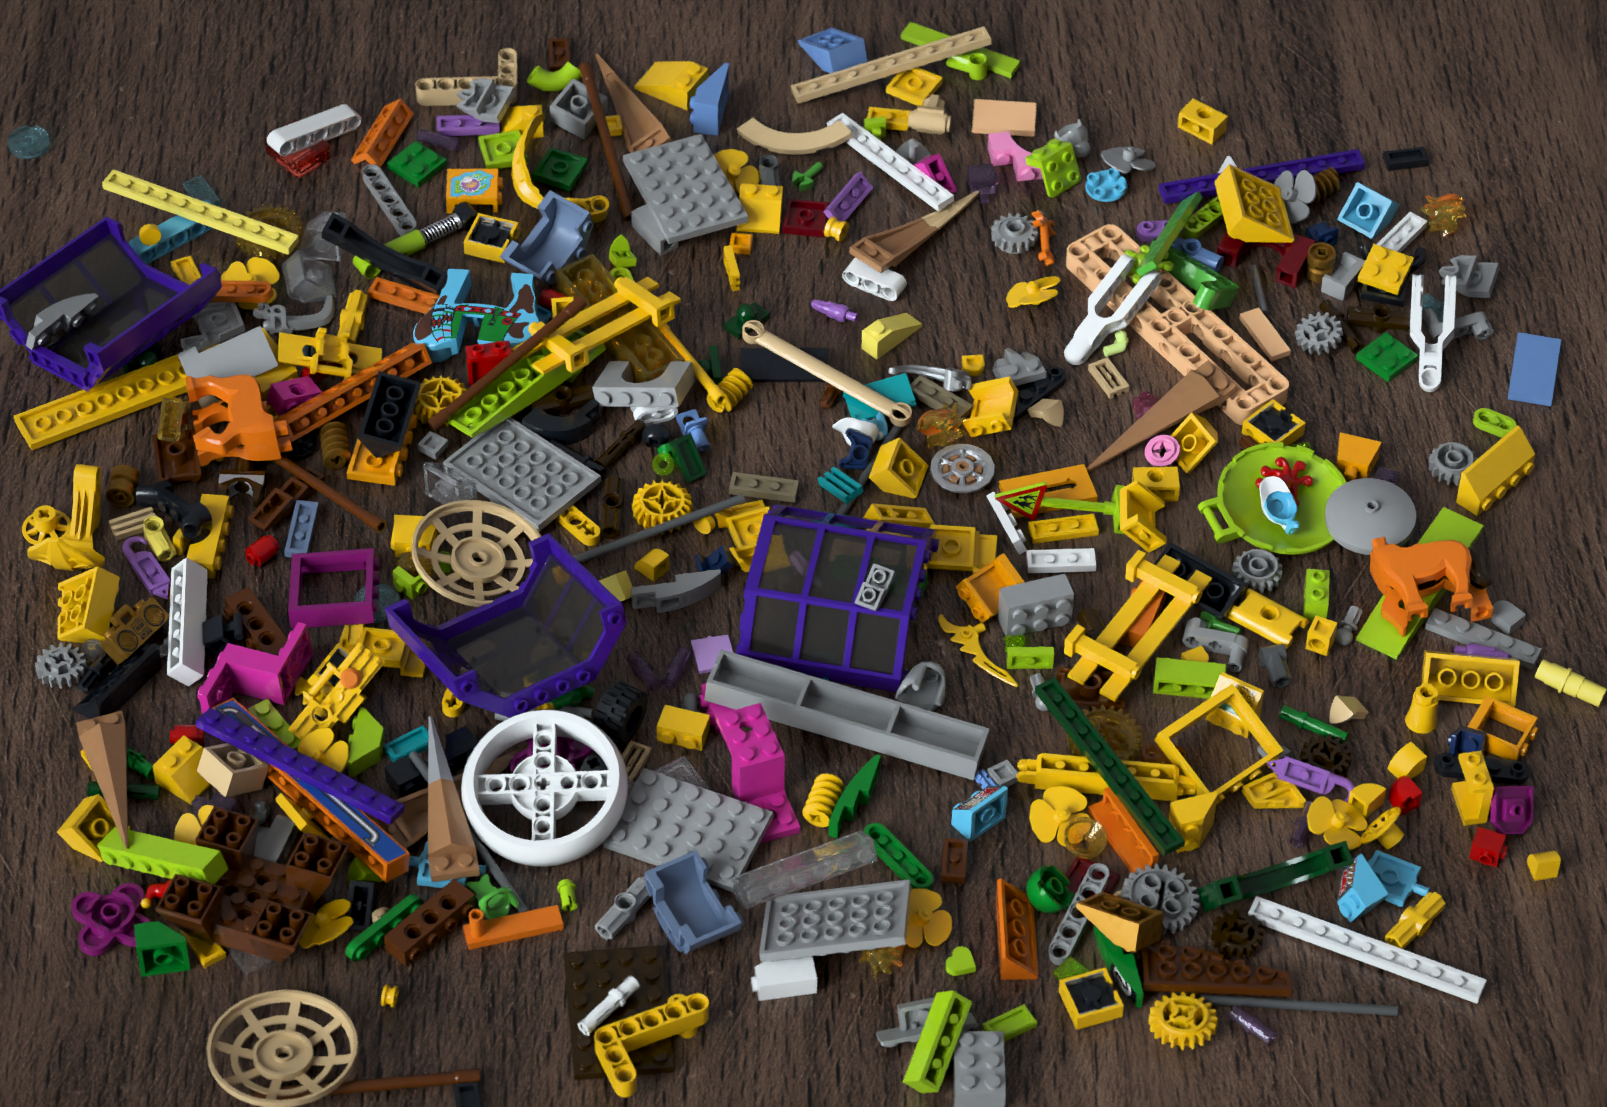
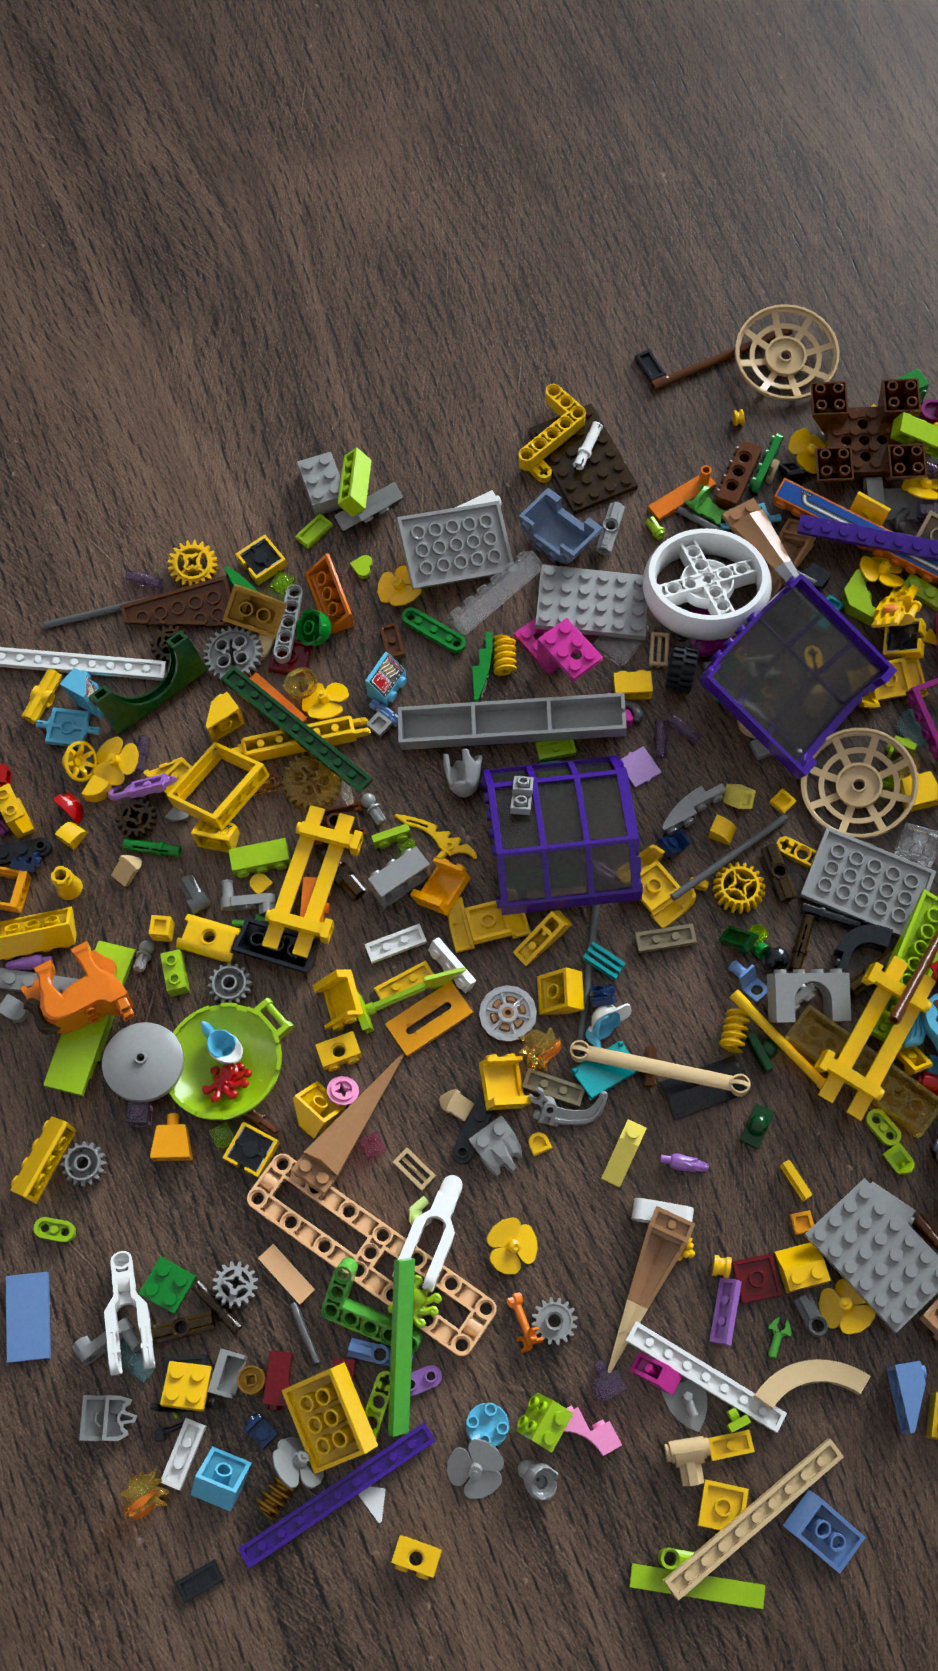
camera: 165 degrees right, 20 degrees up
(1004, 116) = (618, 1493): light nougat tile -> none

